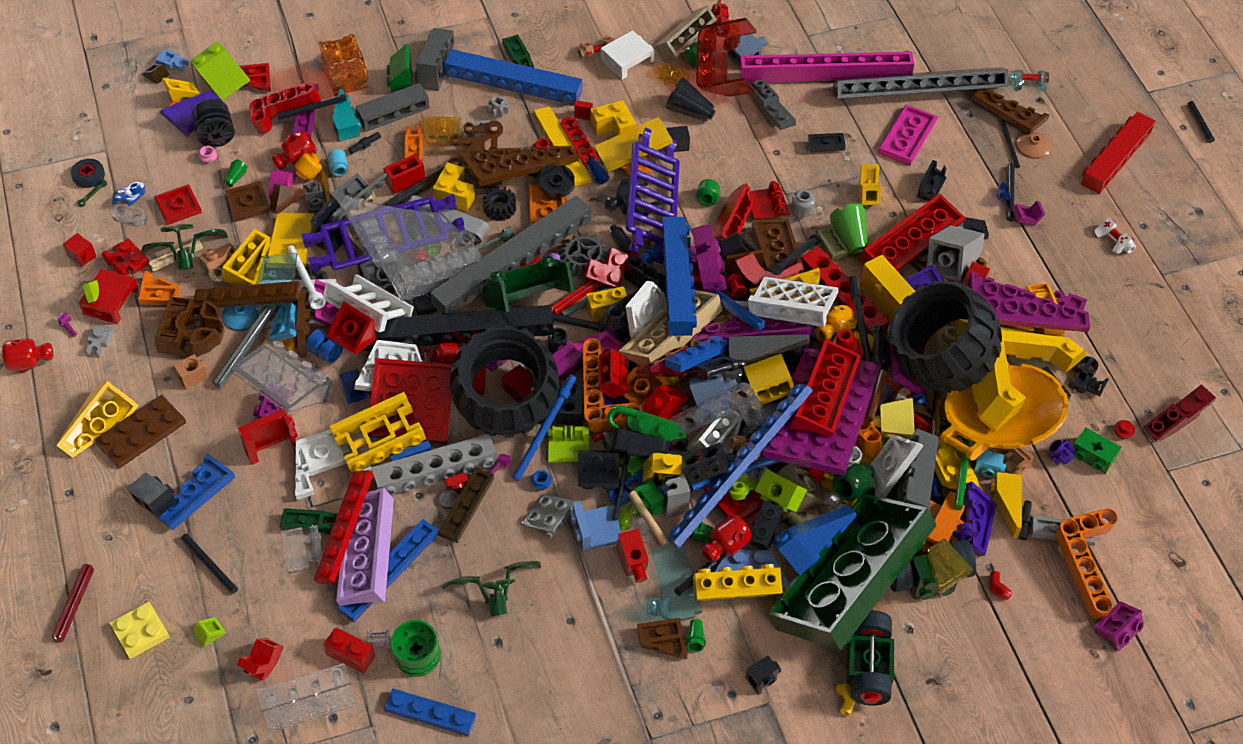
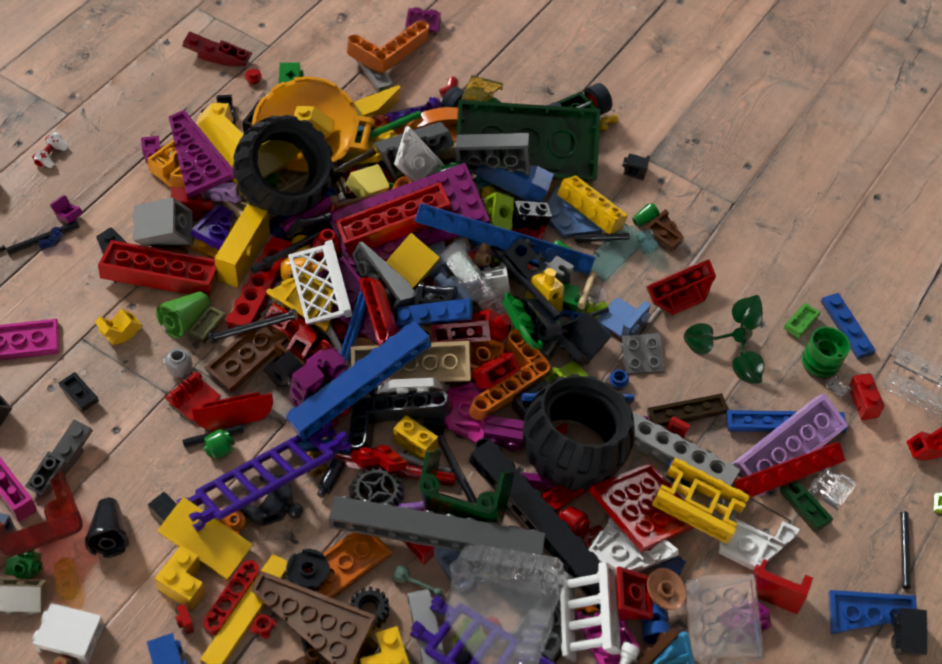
camera: 130 degrees left, 0 degrees up
(332, 353) = (672, 585): none -> nougat dish
(448, 498) = (694, 431): flat silver piece -> none
(468, 672) = (802, 320): none -> bright green plate
(588, 588) = (683, 288): none -> red wedge
(597, 171) = (264, 547): clear blue cone -> none
(632, 554) = (628, 271): red torso -> none
(724, 192) = (201, 438): none -> black bar
(727, 538) = (562, 226): red piece -> none
(732, 322) = (379, 309): none -> red brick
(846, 514) = (495, 150): none -> dark grey wedge
(932, 182) = (75, 293): black hinge -> none
(983, 483) = (380, 120): none -> clear red arm

